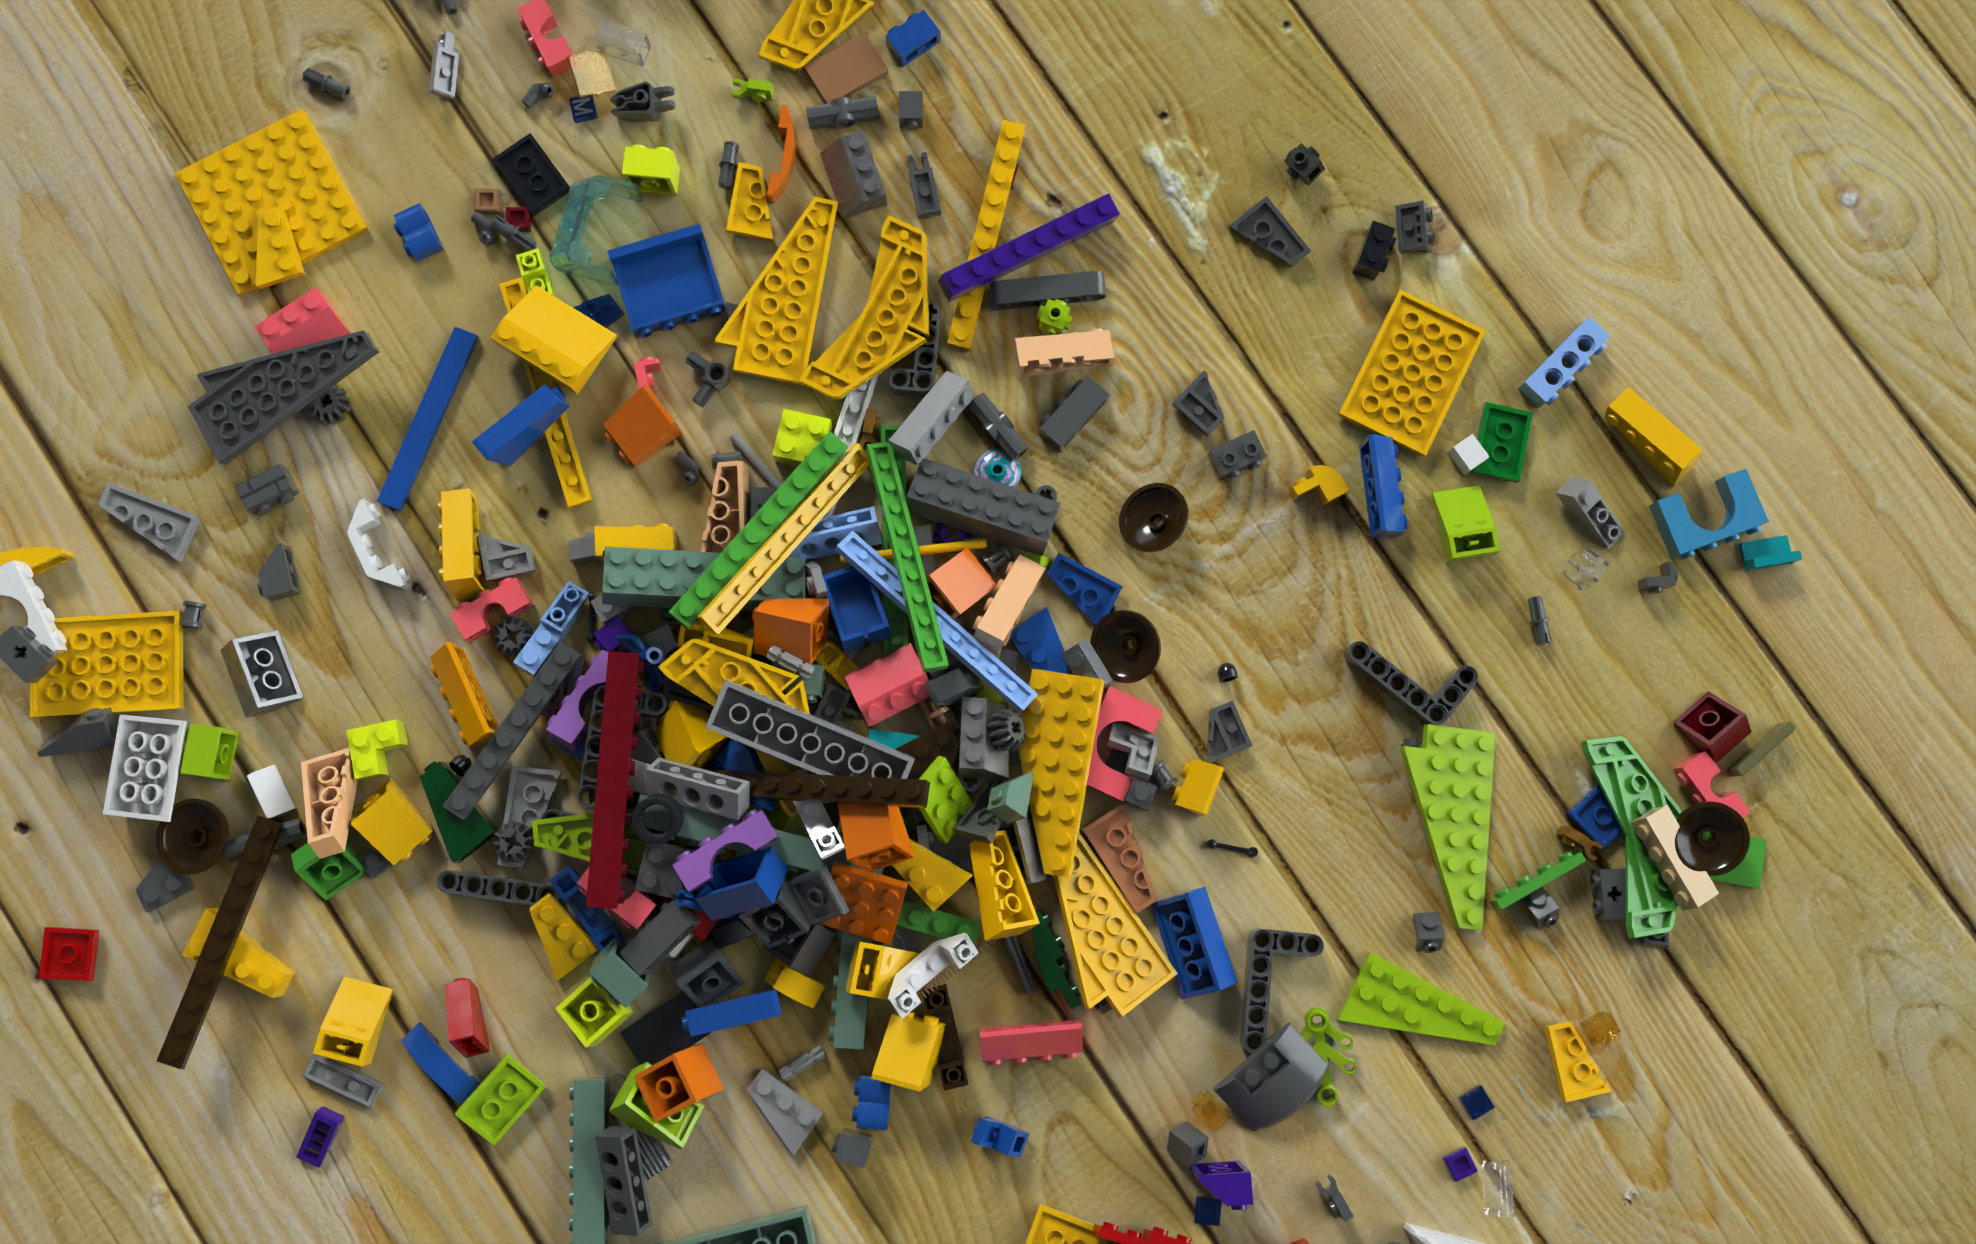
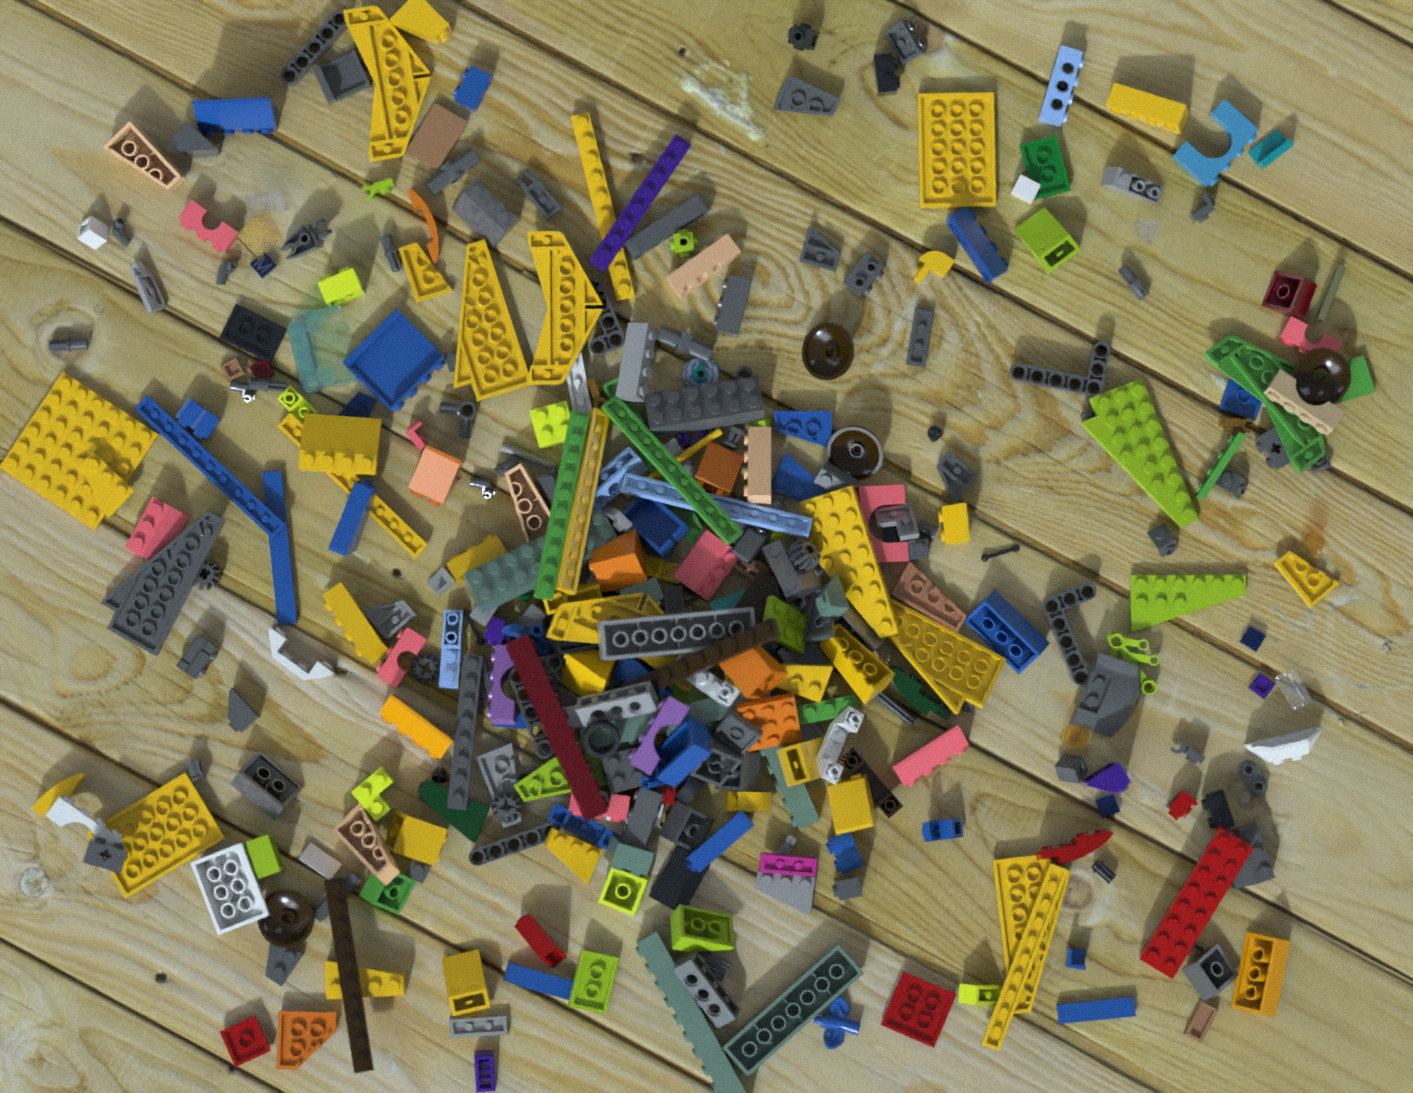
camera: 25 degrees left, 5 degrees up
(88, 731) = (168, 890): dark grey slope -> none
(135, 981) = (301, 1035): none -> orange plate
(158, 522) = (131, 719): light grey wing -> none
(401, 291) = (210, 467): none -> blue plate
(678, 1082) = (708, 906): orange slope -> none
(790, 662) = (632, 586): light grey axle -> none
(799, 1081) = (788, 864): none -> dark pink tile
(910, 109) = (500, 143): dark grey brick -> none
(1264, 557) = (919, 337): none -> dark grey tile

